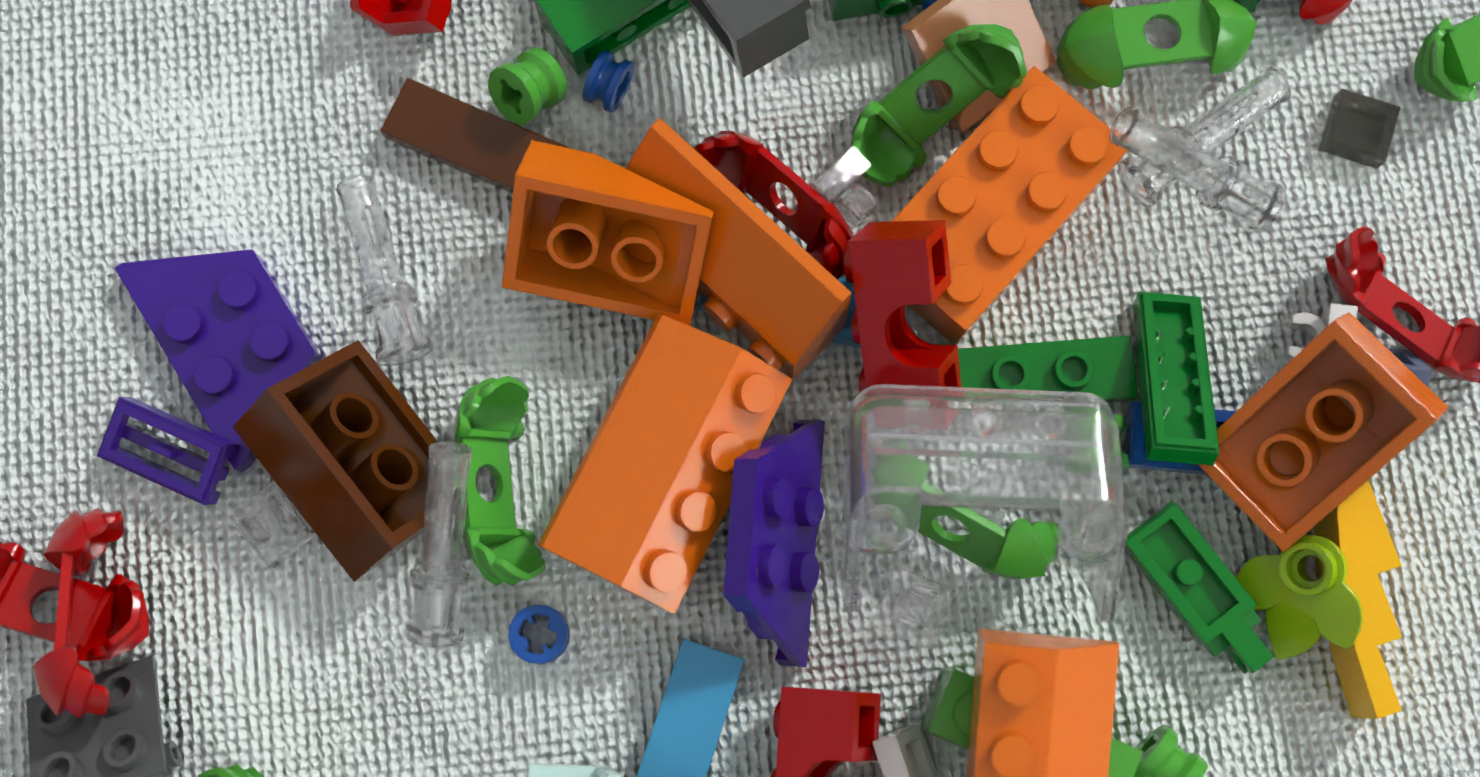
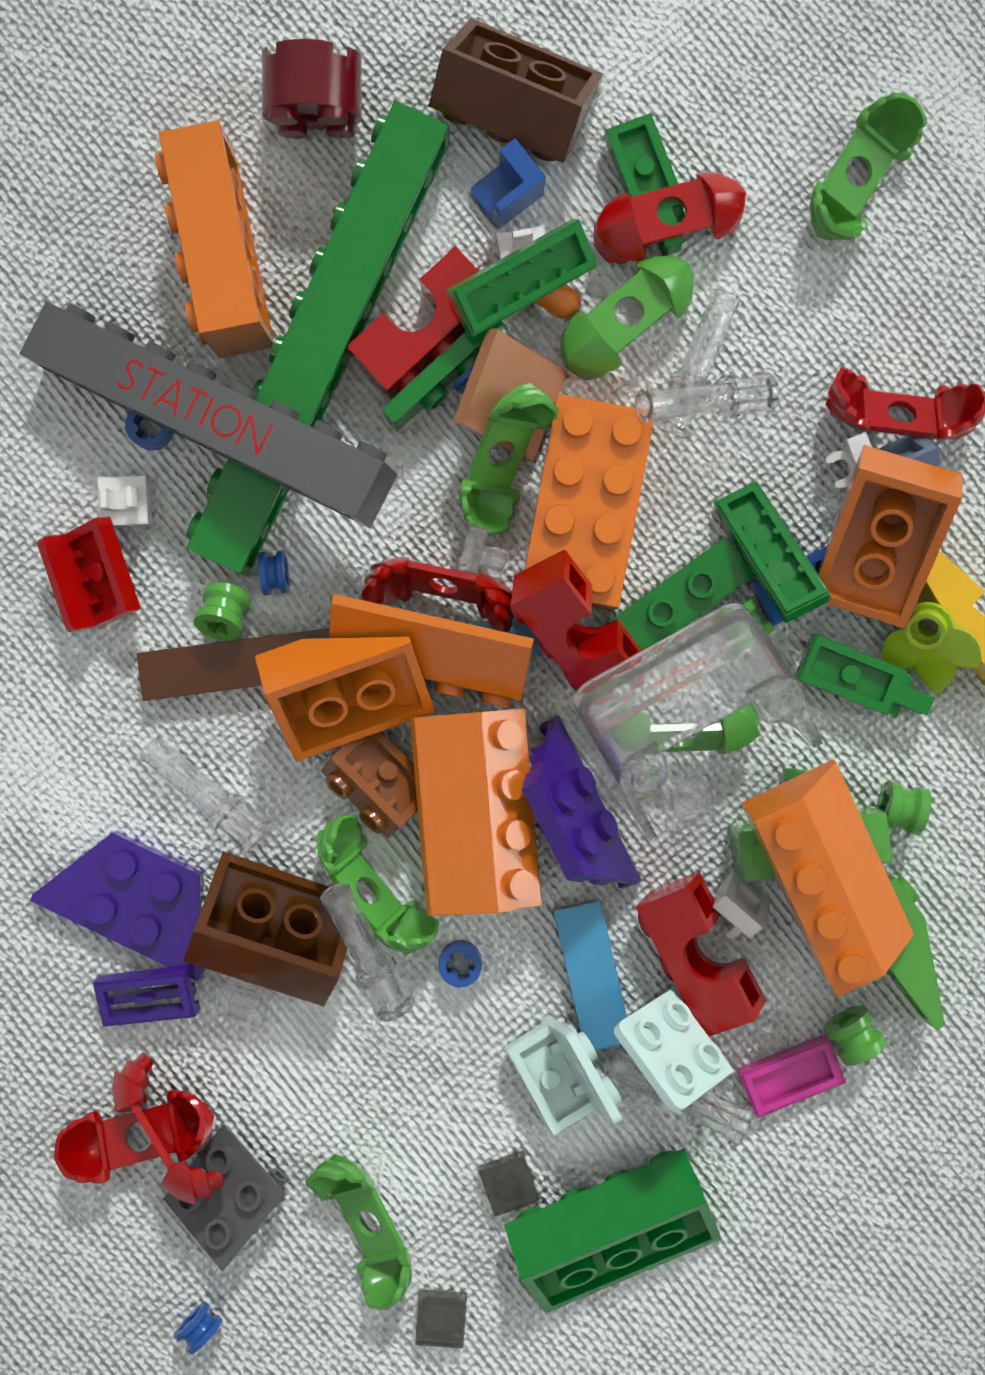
camera: 30 degrees left, 10 degrees up
(574, 366) = (376, 780): none -> dark orange bracket
(1359, 128) = (798, 293): clear smoke tile -> none

